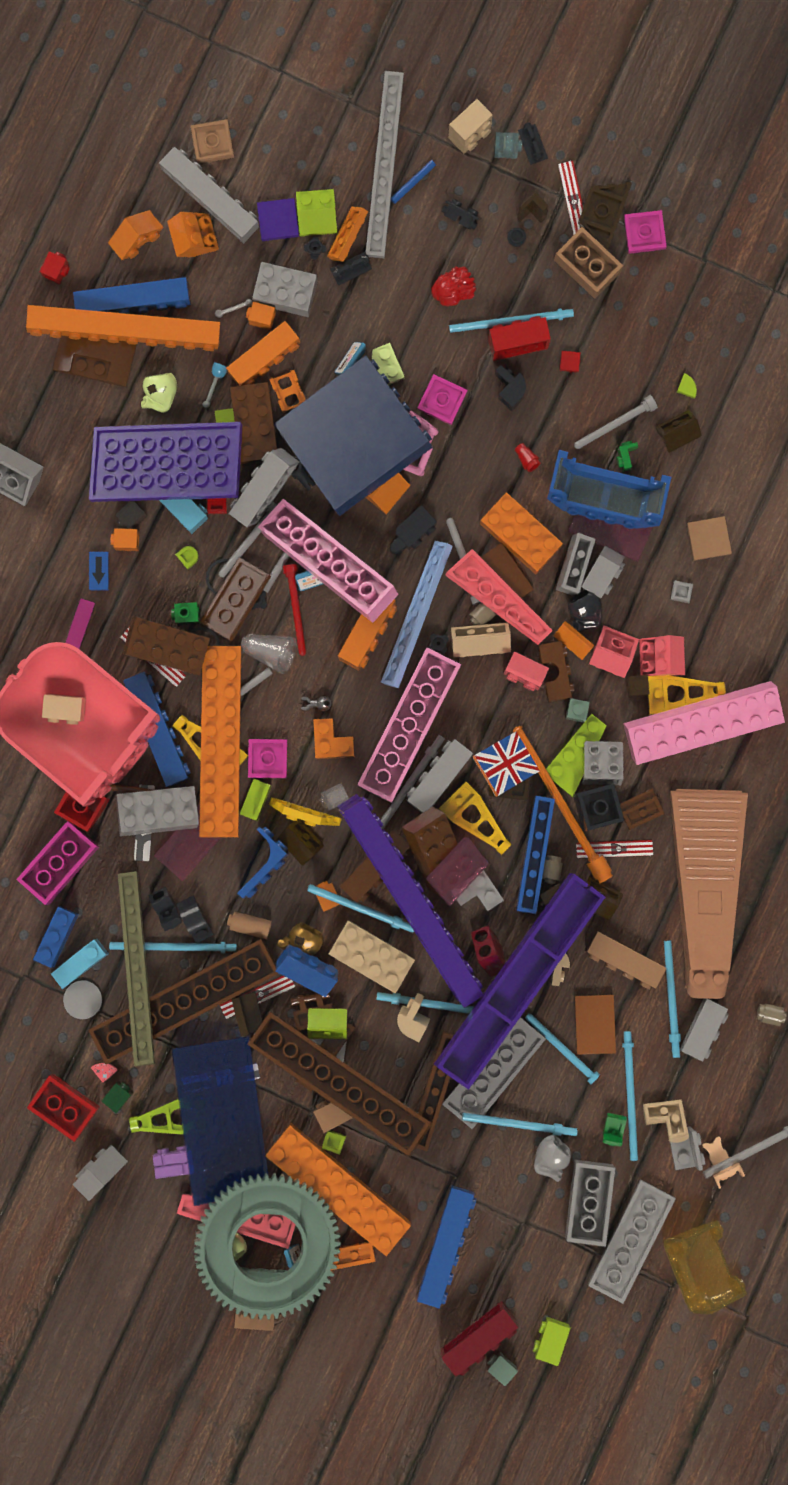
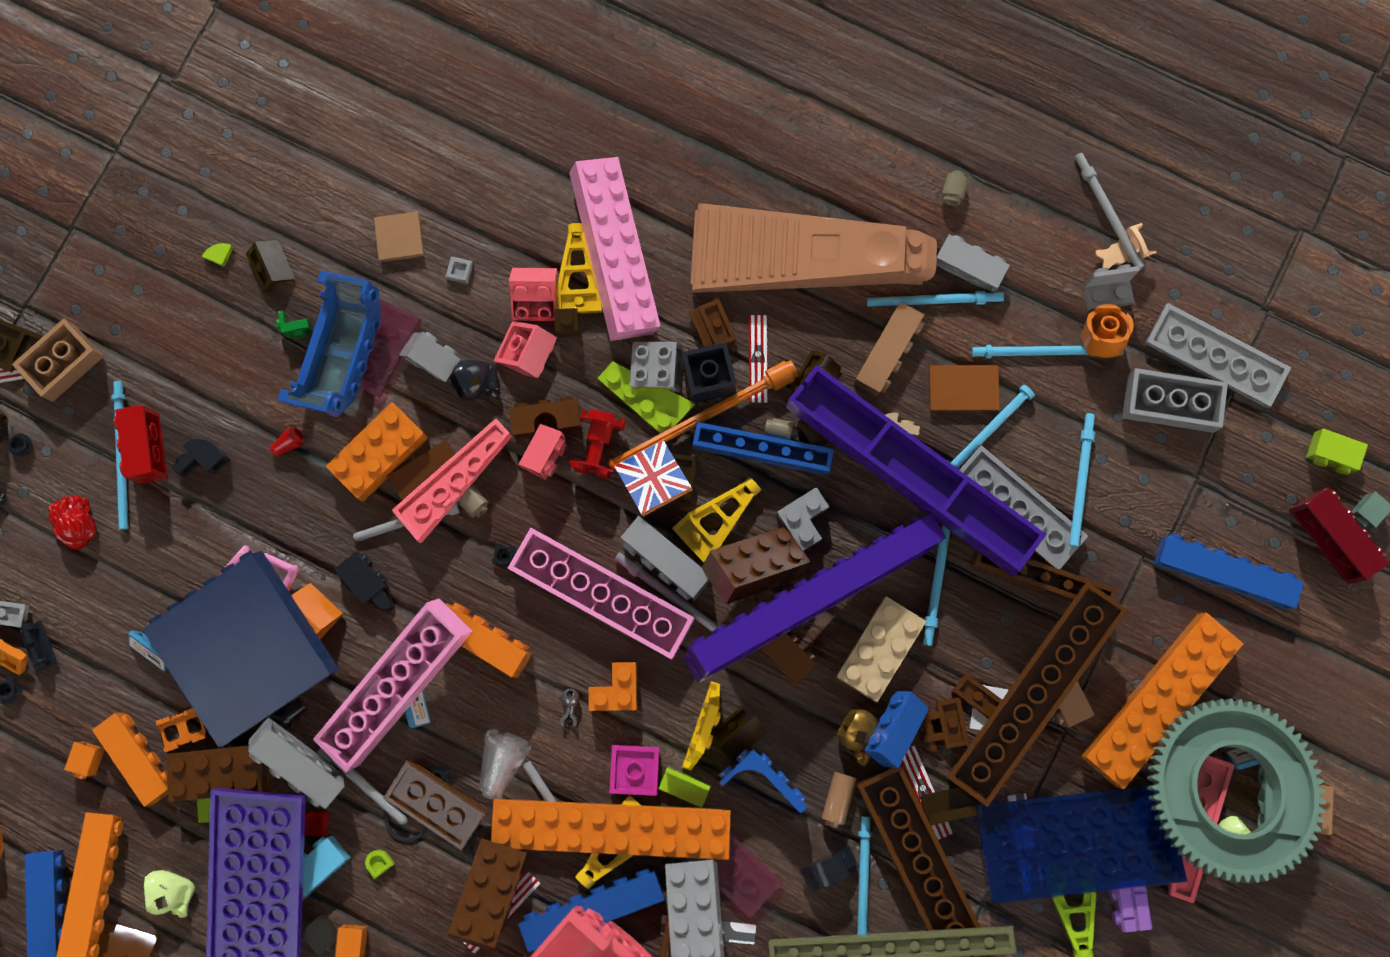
camera: 85 degrees left, 5 degrees down
(165, 908) = (816, 905): black brick -> none
(186, 613) = (449, 867): green brick -> none
(218, 371) = (149, 815): hinge -> none
(219, 313) = (77, 813): light grey hinge -> none
(276, 571) = (403, 751): light grey bar -> none
(285, 289) = (53, 727): light grey brick -> none
(290, 572) = (405, 733): red piece -> none
(325, 903) = (805, 701): orange brick -> none
(327, 1023) = (961, 706): lime panel -> none
(333, 797) = (685, 688): clear brick -> none
(333, 1142) = (1103, 703): lime tile -> none
(355, 1255) = (1240, 681): orange plate -> none
(388, 363) = (157, 603): yellowish green wing -> none
(395, 921) = (838, 620): medium azure bar -> none
(410, 1021) = (959, 604): tan brick -> none
(416, 614) = (467, 580): light blue plate -> none
(442, 399) = (208, 540): dark pink plate -> none
(457, 871) = (780, 539): clear pink tile -> none
(481, 640) = (502, 503): tan brick -> none
(495, 960) = (890, 499): dark red piece -> none
(541, 717) = (599, 434): none -> red piece
(552, 1157) = (1121, 443): light grey piece -> none
(570, 361) = (176, 388): red tile -> none
(573, 640) = (509, 394): orange tile -> none
(575, 564) = (418, 388): light grey brick -> none
(577, 710) = (592, 393): sand green brick -> none
(614, 1129) = (1088, 370): green bracket -> none
(645, 231) = (29, 294): dark pink plate -> none
(647, 404) = (235, 299): light grey piece -> none
(647, 1144) = (1107, 331): none -> orange brick
(670, 1113) = (1069, 304): tan brick -> none
(702, 1269) = (1250, 276): clear yellow windscreen -> none

